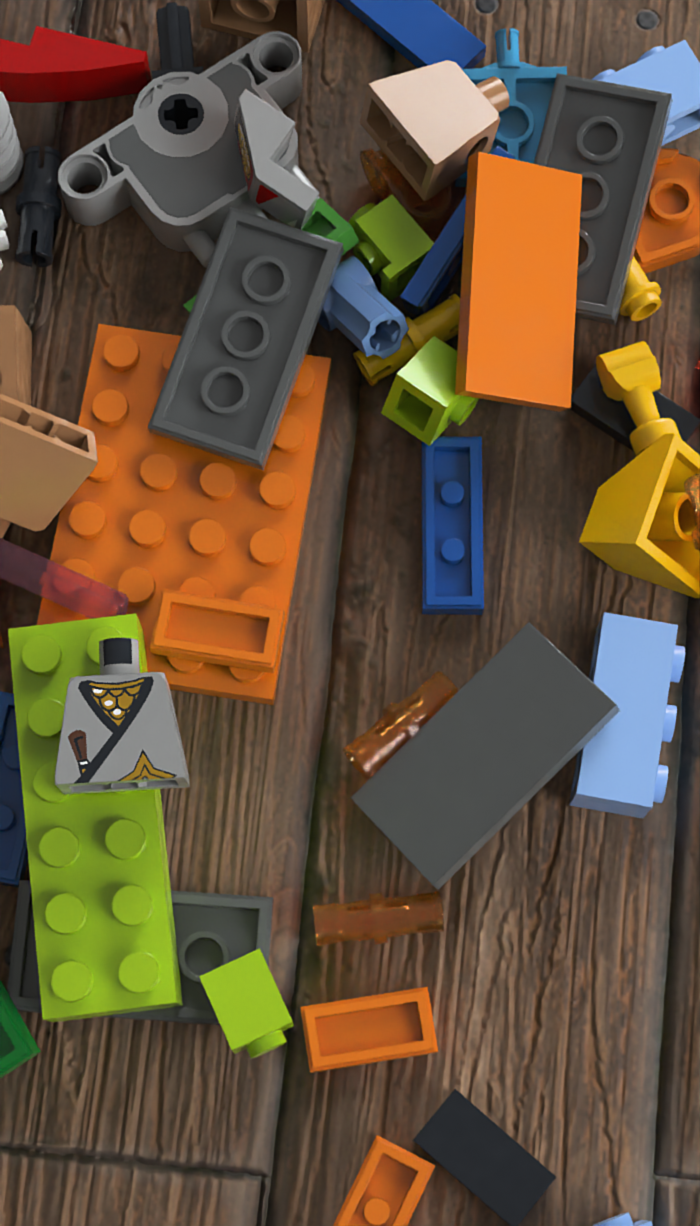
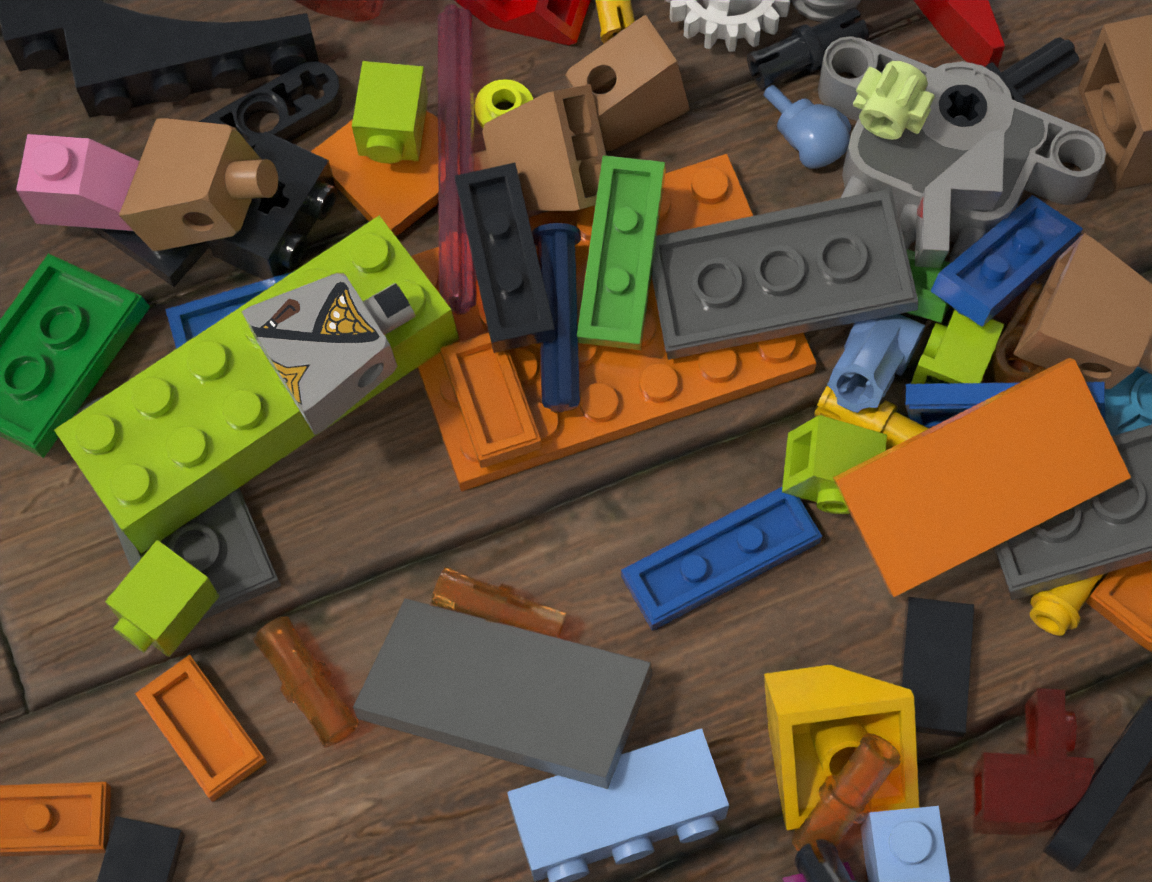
camera: 65 degrees right, 5 degrees down
(103, 547) = (505, 258): none -> black plate
(118, 244) = (814, 130): none -> medium blue piece
(153, 159) = (893, 100): none -> yellowish green gear
(154, 450) = (621, 252): none -> bright green plate
(177, 535) = (559, 356): none -> dark blue axle
(338, 162) = (1005, 260): none -> blue plate
(631, 377) = (957, 640): yellow leg -> none

